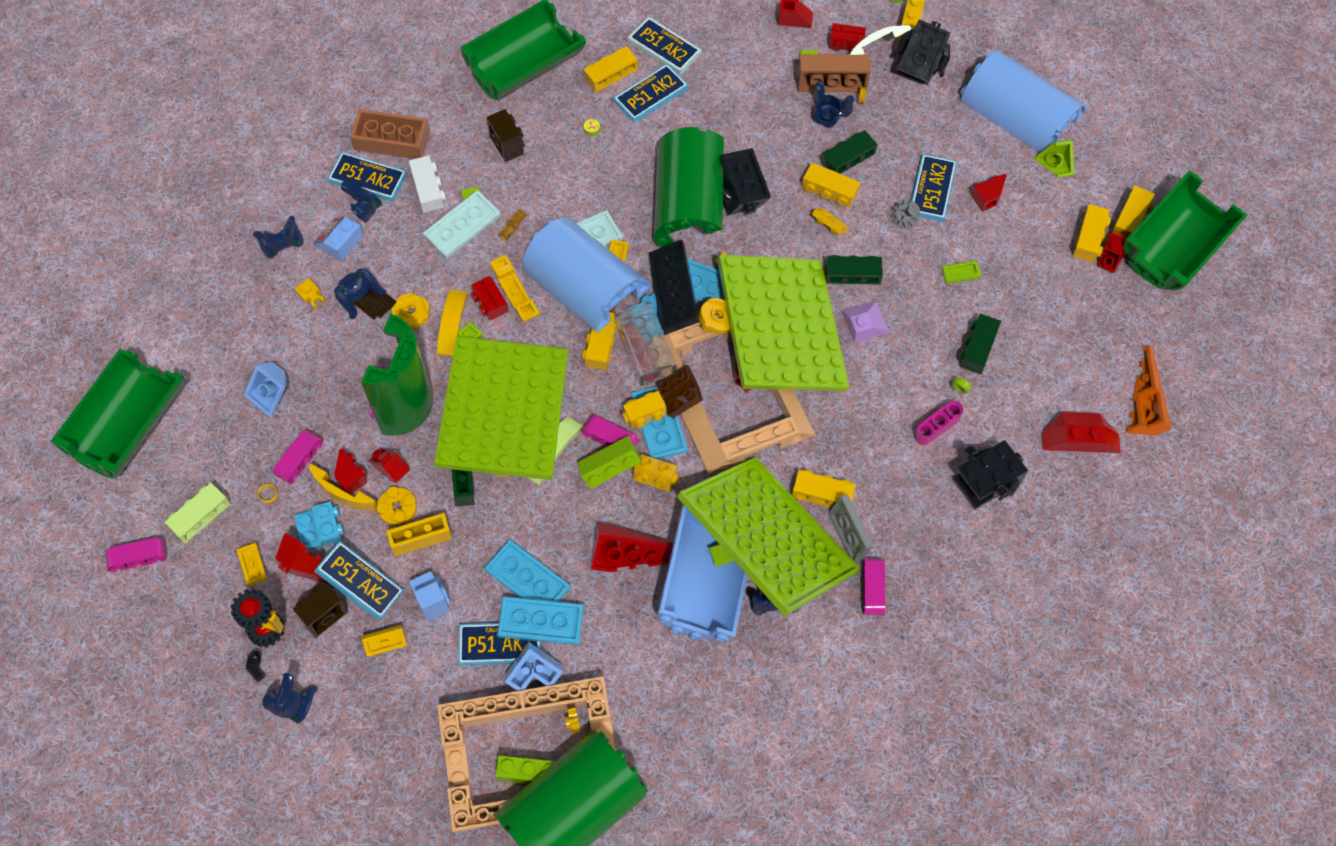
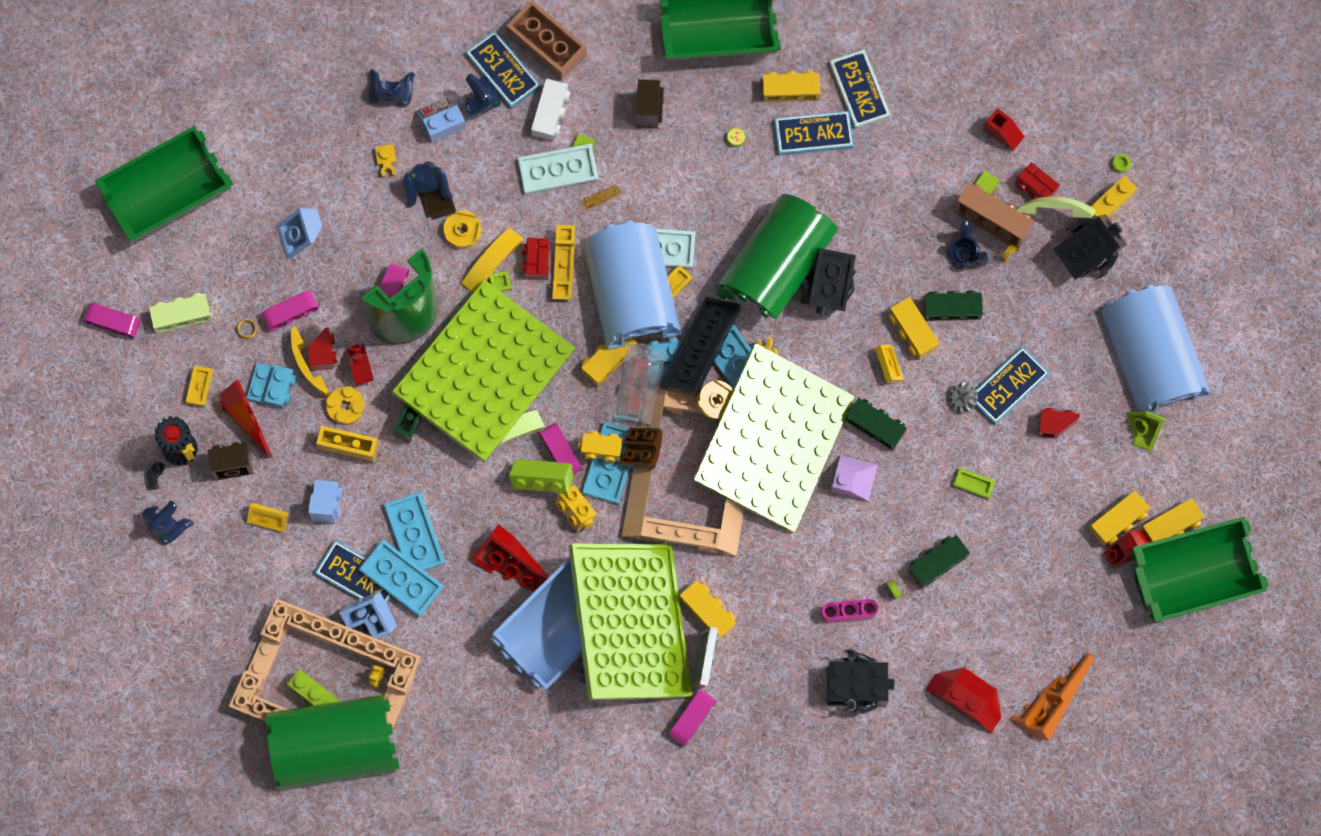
camera: 30 degrees right, 10 degrees up
(359, 580) = (275, 455): tile -> none

